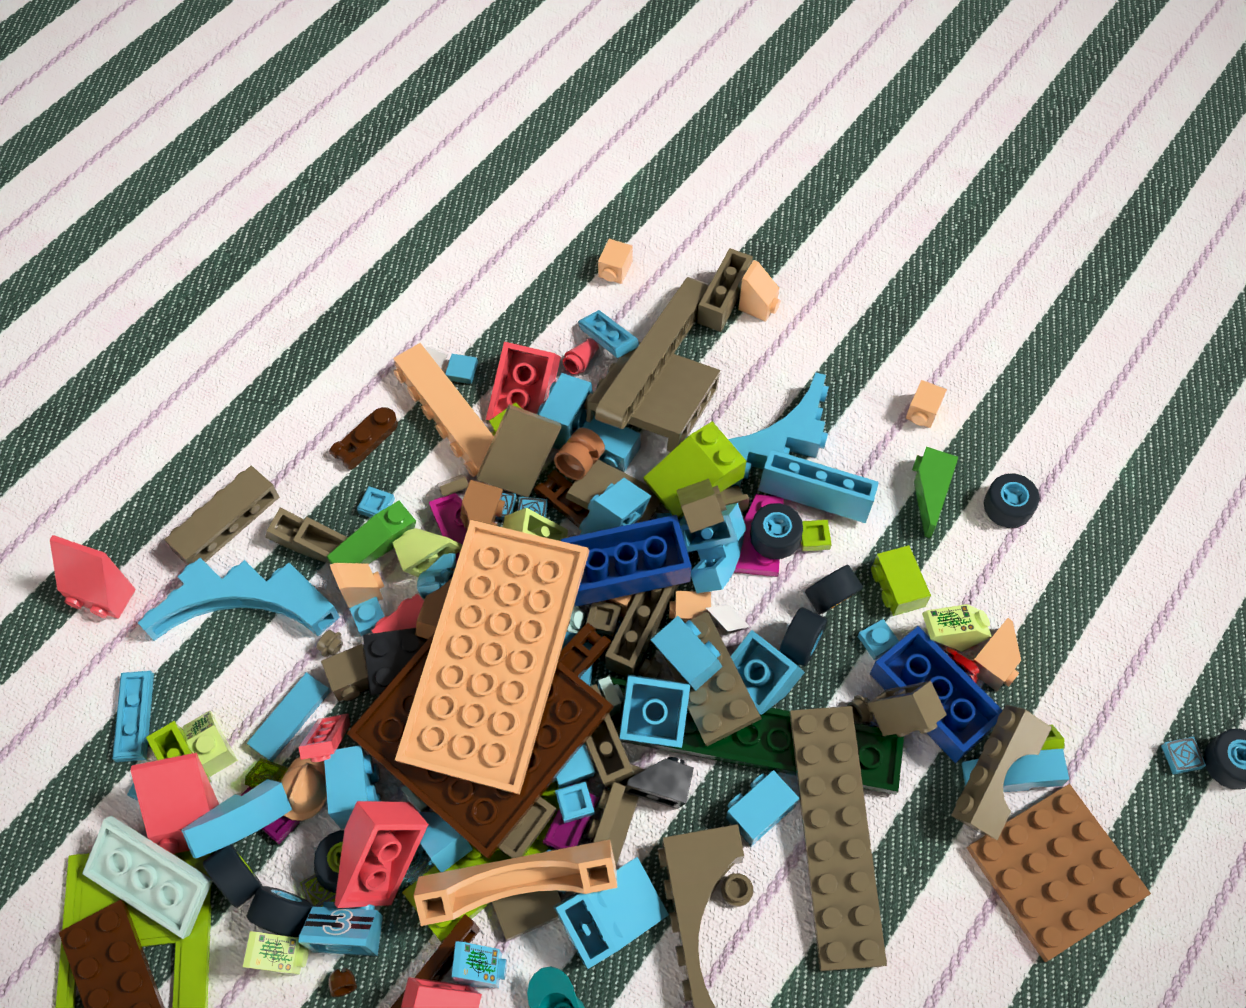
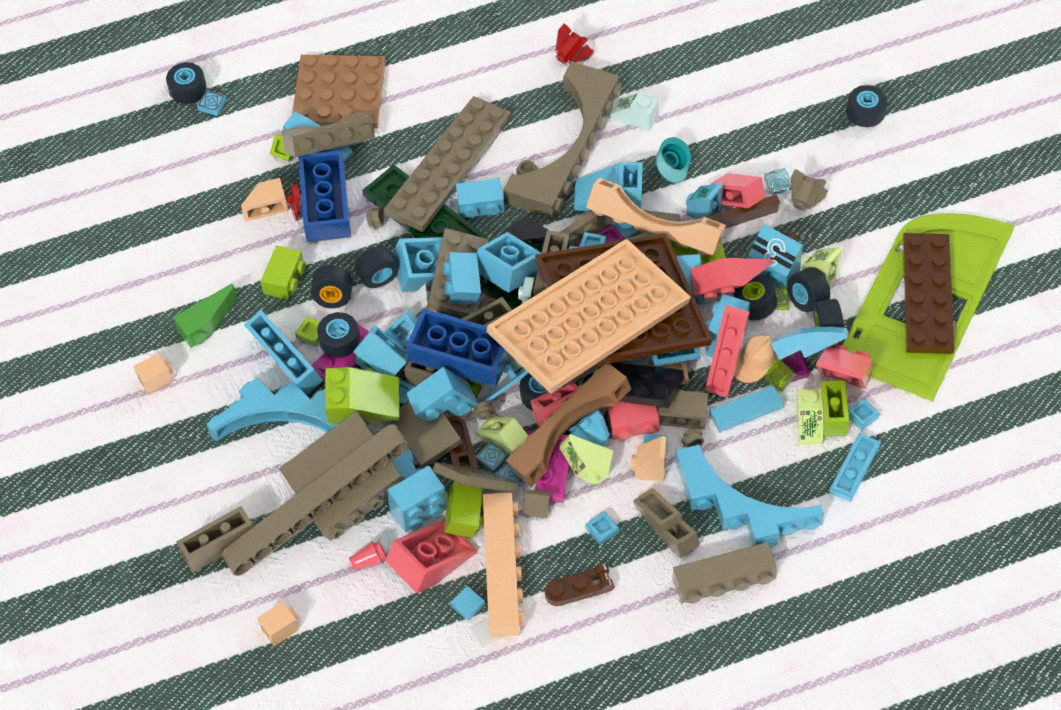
camera: 145 degrees left, 5 degrees down
(89, 578) = (843, 563): coral slope -> none
(147, 877) = (884, 346): light aqua tile -> none
(375, 536) = (619, 487): bright green slope -> none
(579, 453) = (434, 453): nougat wheel -> none
(608, 334) = (335, 553): medium azure tile -> none
(701, 505) = (382, 351): dark tan brick -> none
(758, 293) = (193, 517): light nougat slope -> none
(878, 639) = (327, 252): medium azure plate -> none
(907, 709) = (355, 183): dark tan brick -> none
(957, 626) = (277, 219): yellowish green slope -> none
(1011, 500) = (163, 280): black wheel -> none

